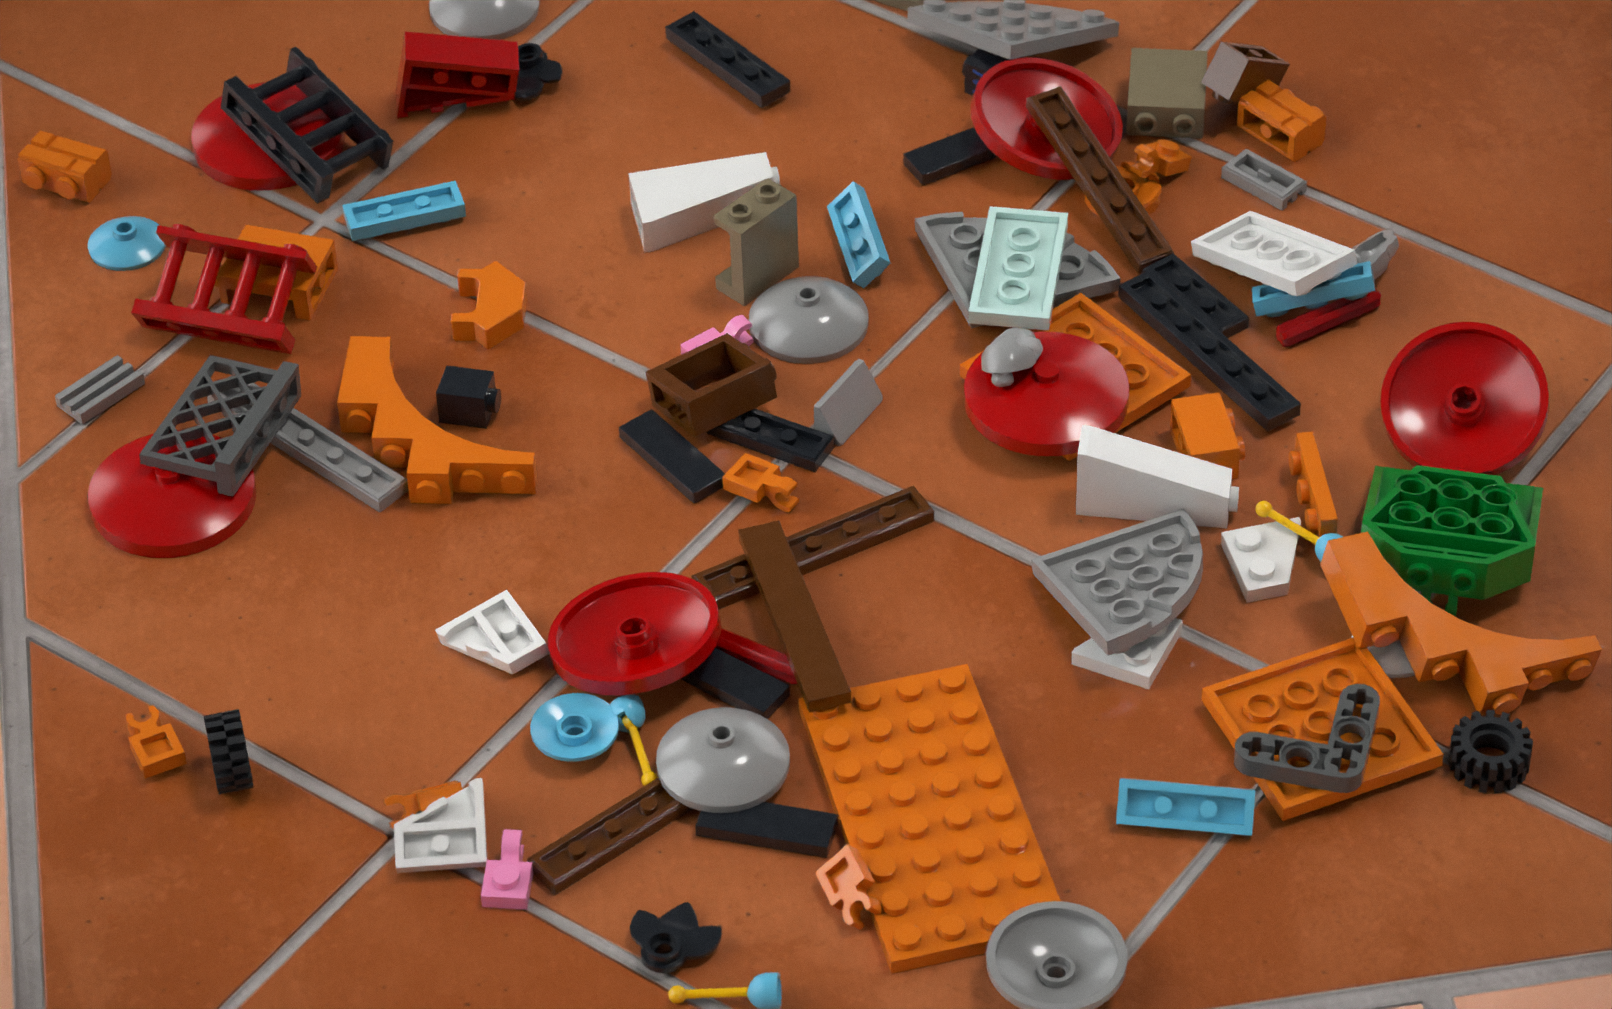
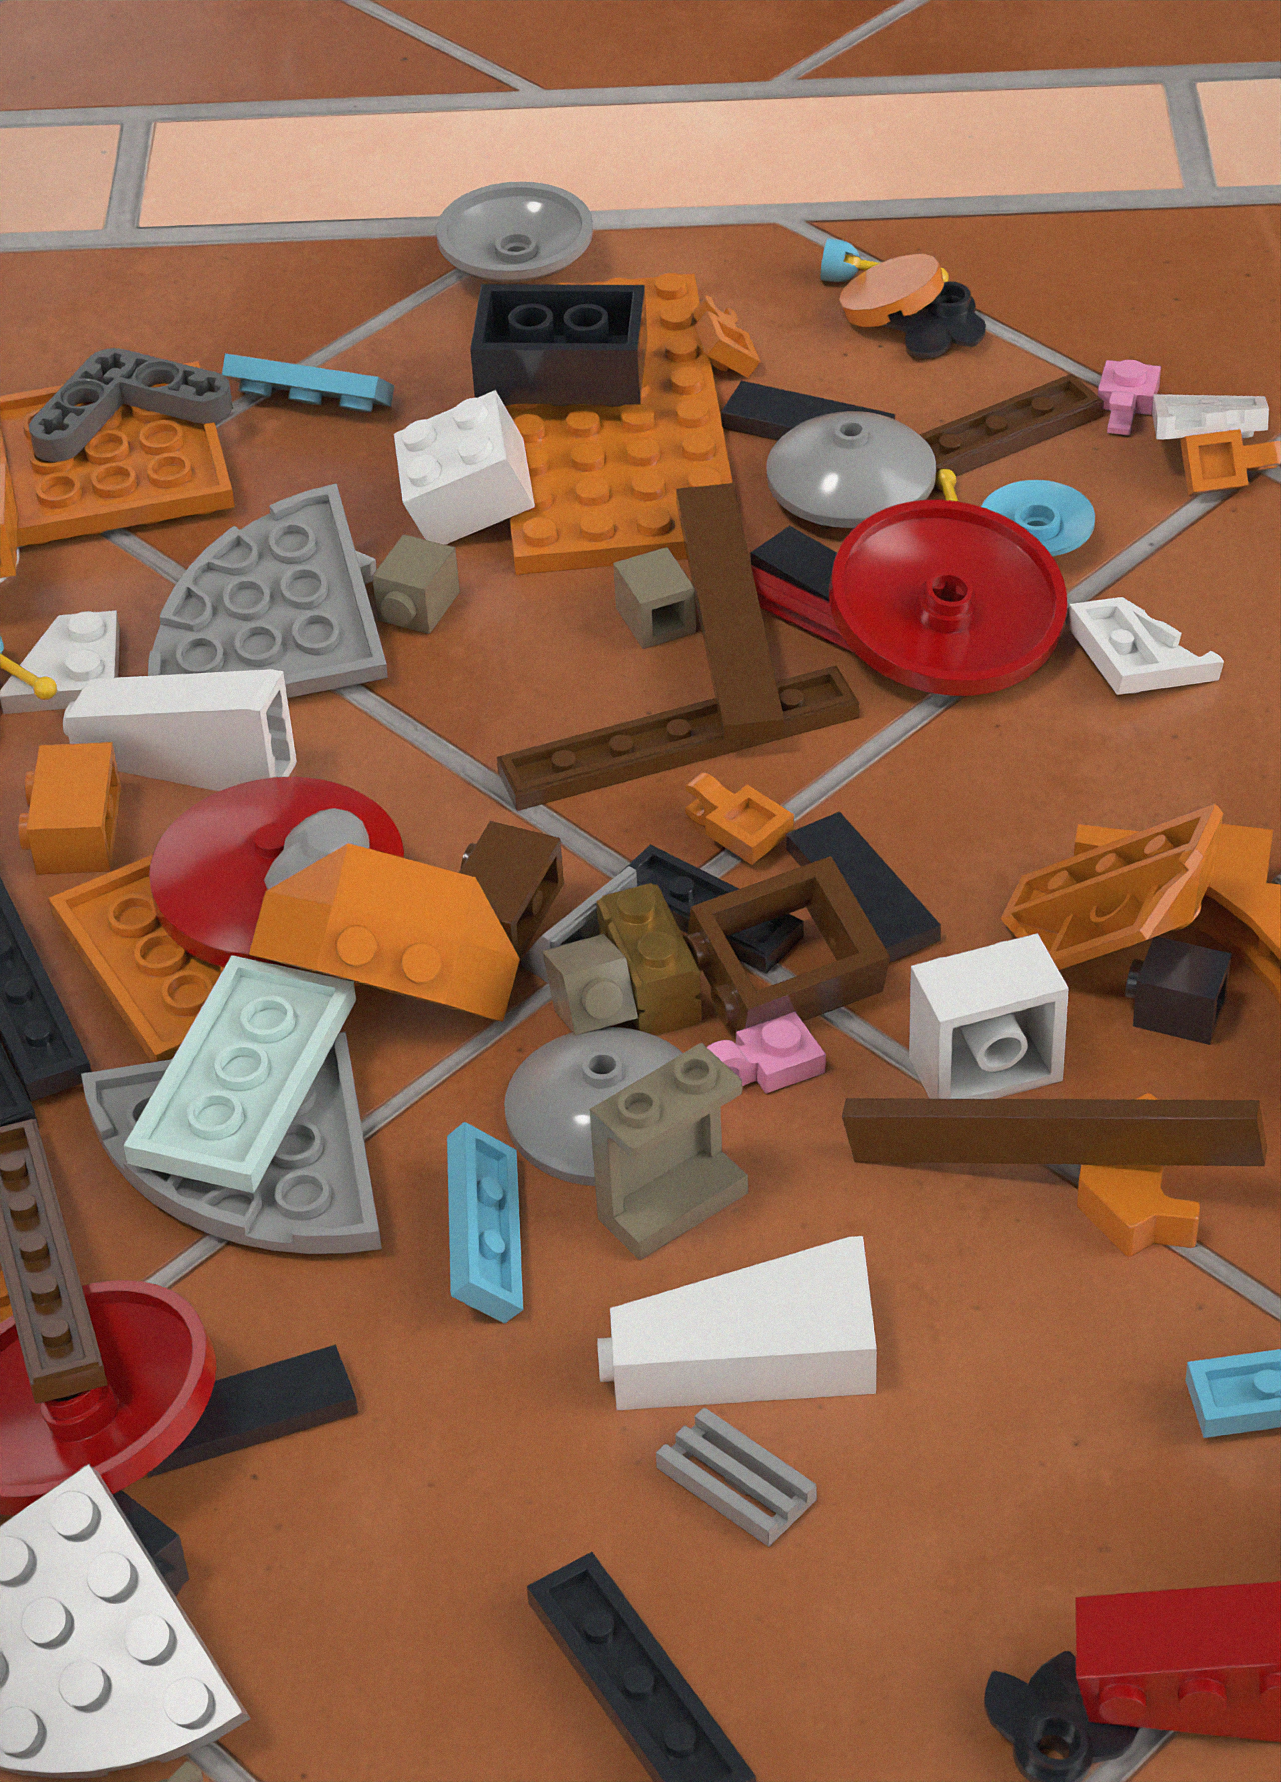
camera: 170 degrees left, 0 degrees up
(505, 408) = (1119, 890): none -> orange wedge
(540, 280) = (1056, 1131): none -> reddish brown tile
(582, 337) = (988, 1021): none -> white brick
(698, 143) = (745, 1468): none -> light grey tile
(713, 945) = (891, 286): none -> orange tile
(799, 373) = (657, 958): none -> pearl gold brick
(827, 350) = (590, 984): none -> dark tan brick
(853, 632) = (655, 597): none -> dark tan brick
(900, 400) = (518, 876): none -> reddish brown brick
(952, 321) = (391, 930): none -> orange wedge
(973, 794) = (560, 344): none -> black brick
(1021, 701) = (463, 469): none -> white brick
(1031, 627) = (416, 584): none -> dark tan brick

